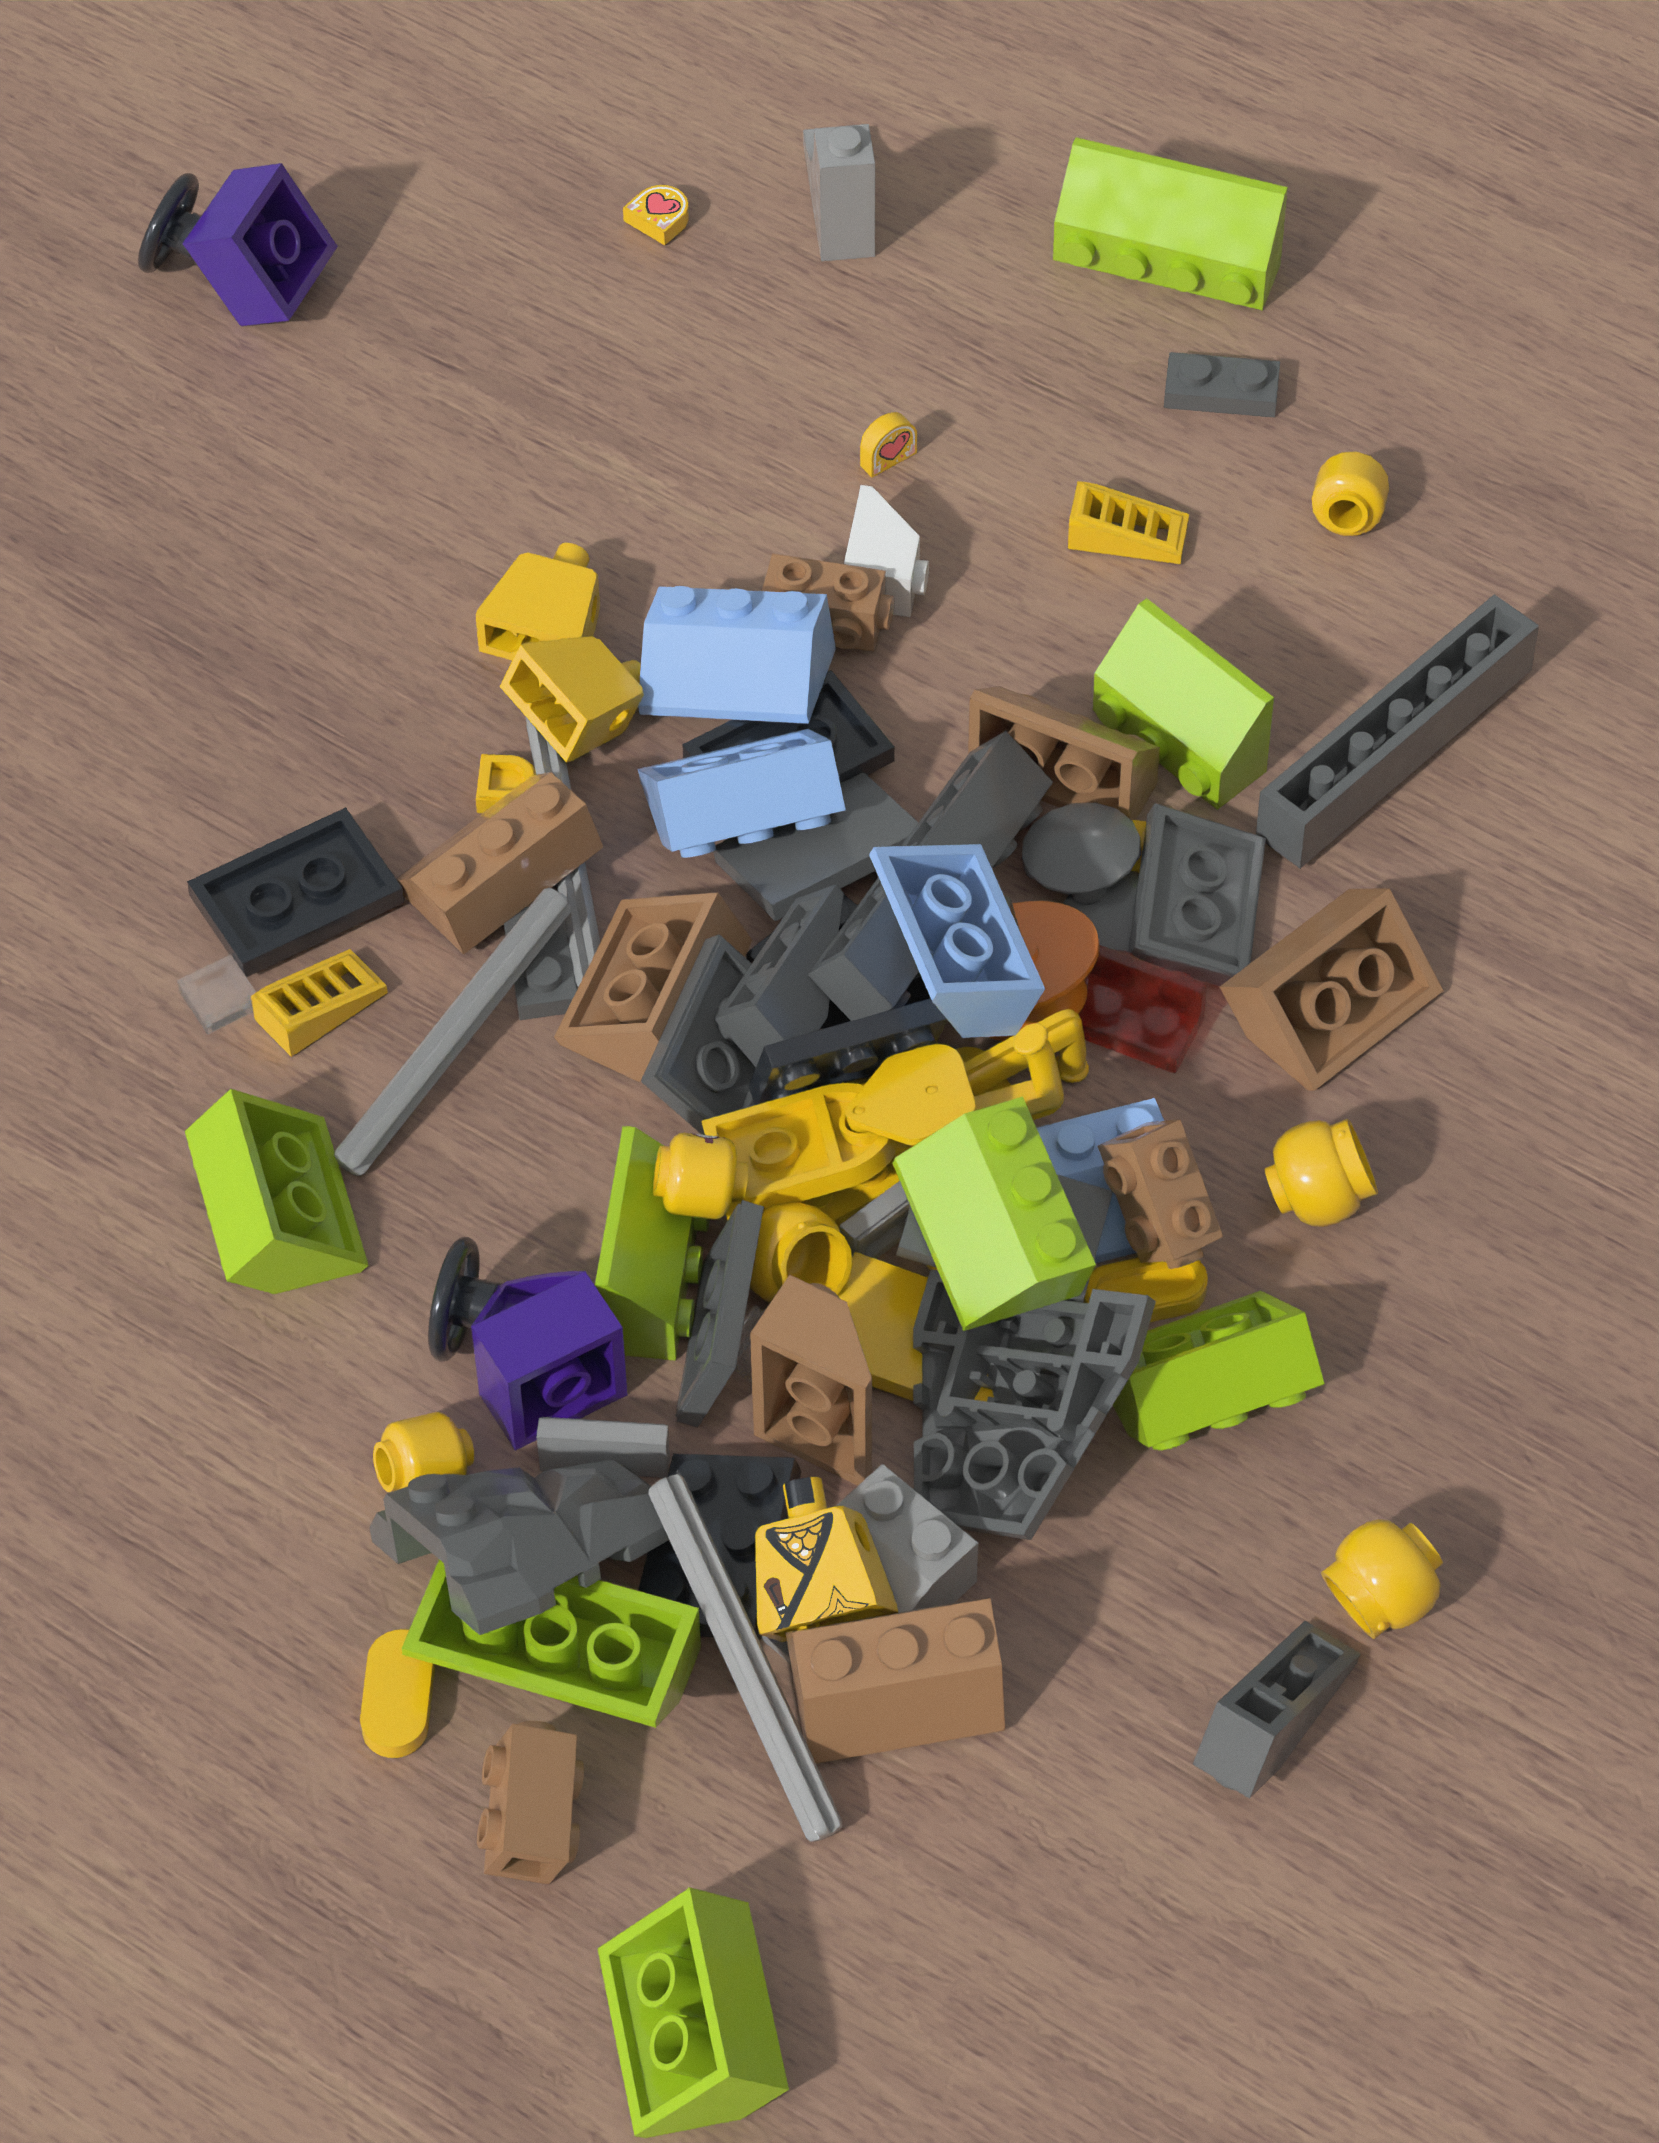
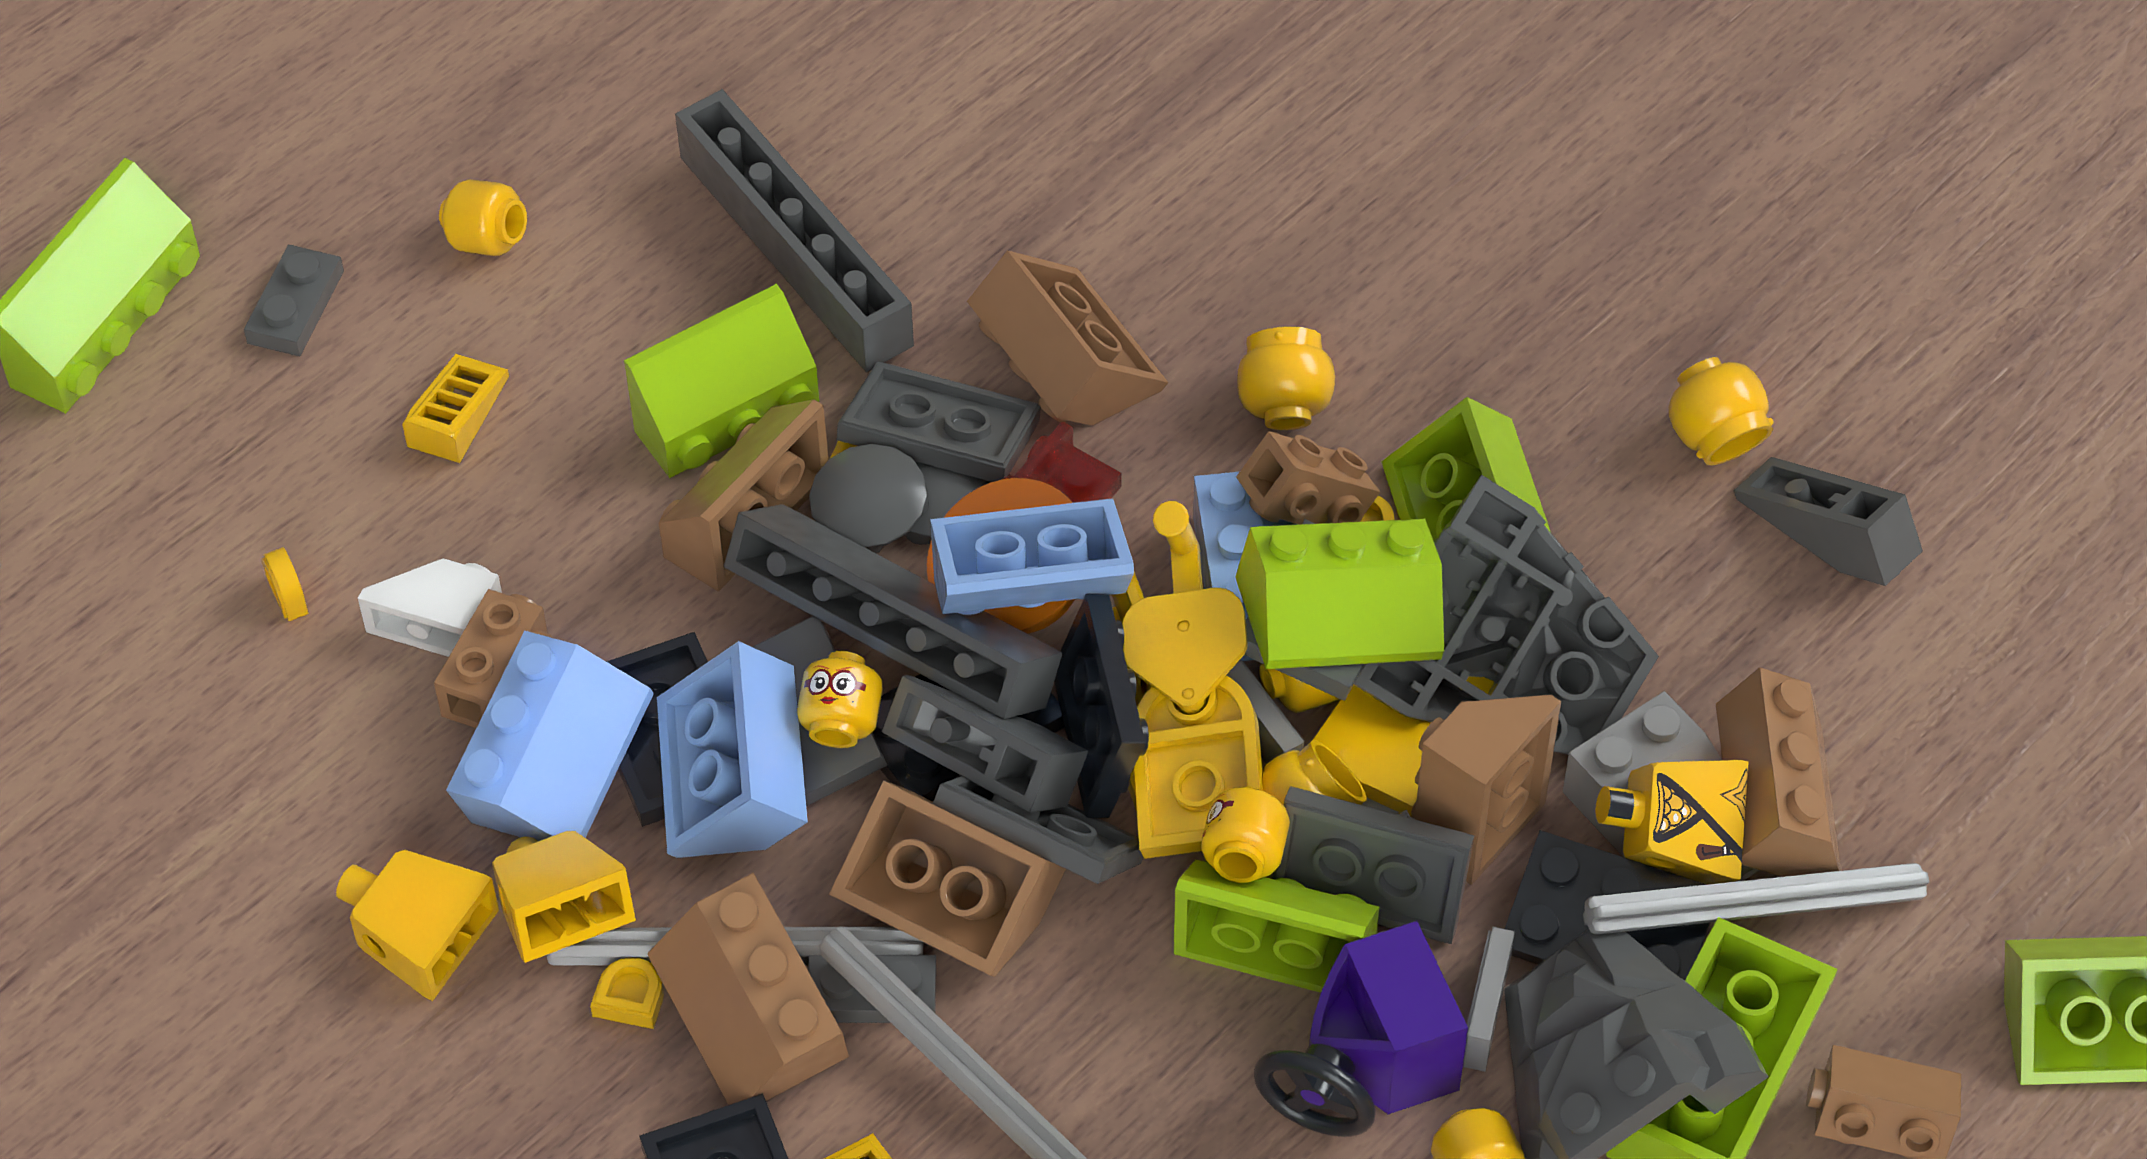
camera: 80 degrees left, 0 degrees up
(806, 846) = (839, 700): none -> yellow head

